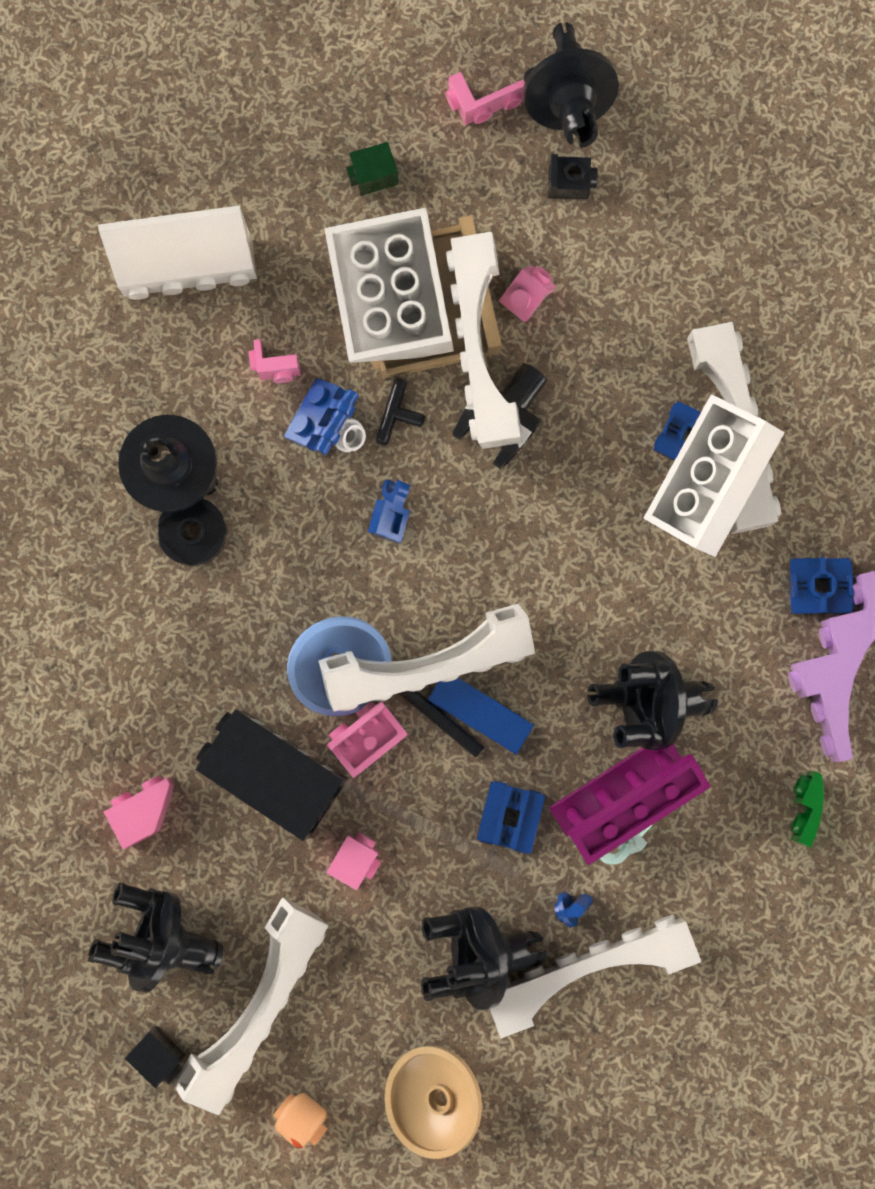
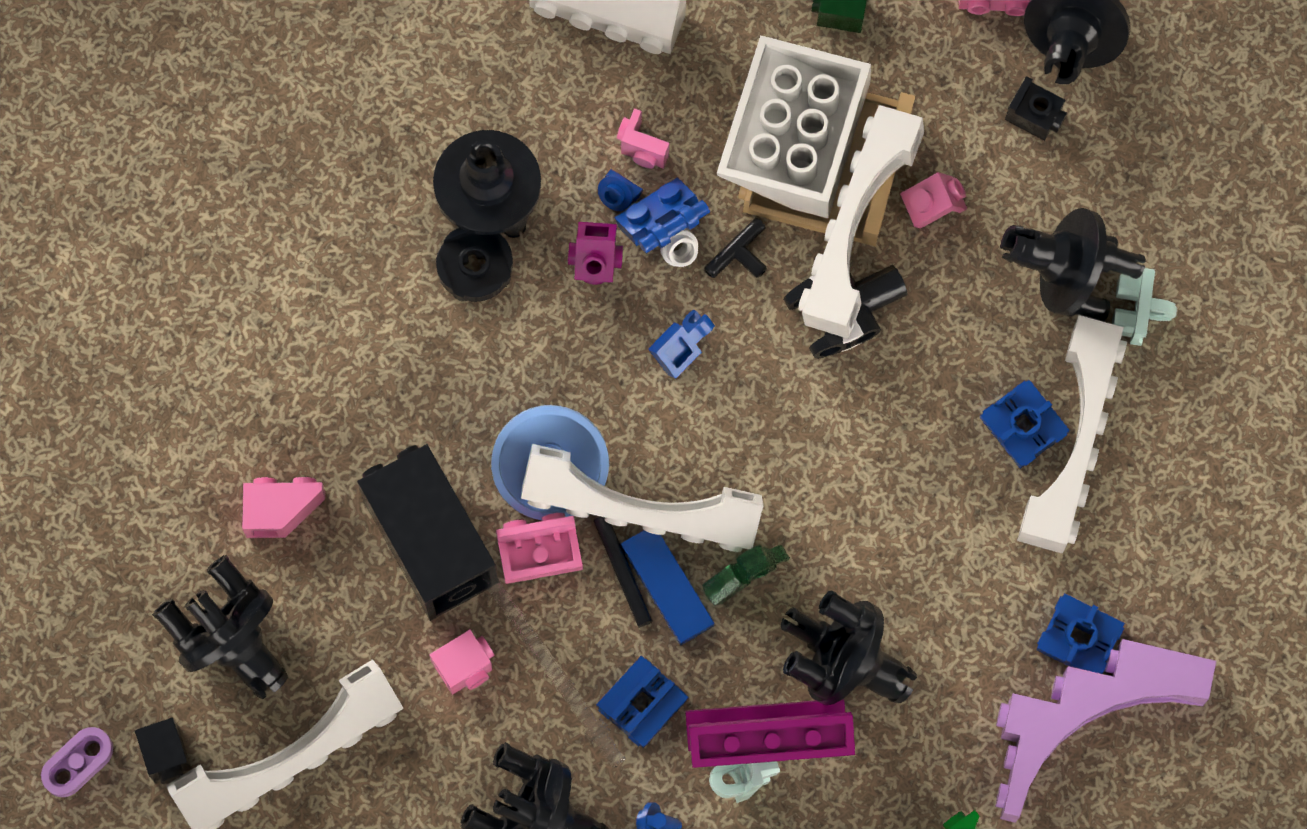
camera: 25 degrees right, 10 degrees down
(93, 1100) = (74, 759): none -> lavender plate
(275, 413) = (617, 191): none -> blue plate
(284, 474) = (595, 253): none -> magenta brick
(537, 674) = (749, 567): none -> clear green bar
(667, 288) = (1071, 262): none -> black piece
(713, 475) = (1021, 463): white brick -> none
(729, 284) = (1146, 307): none -> light aqua hips

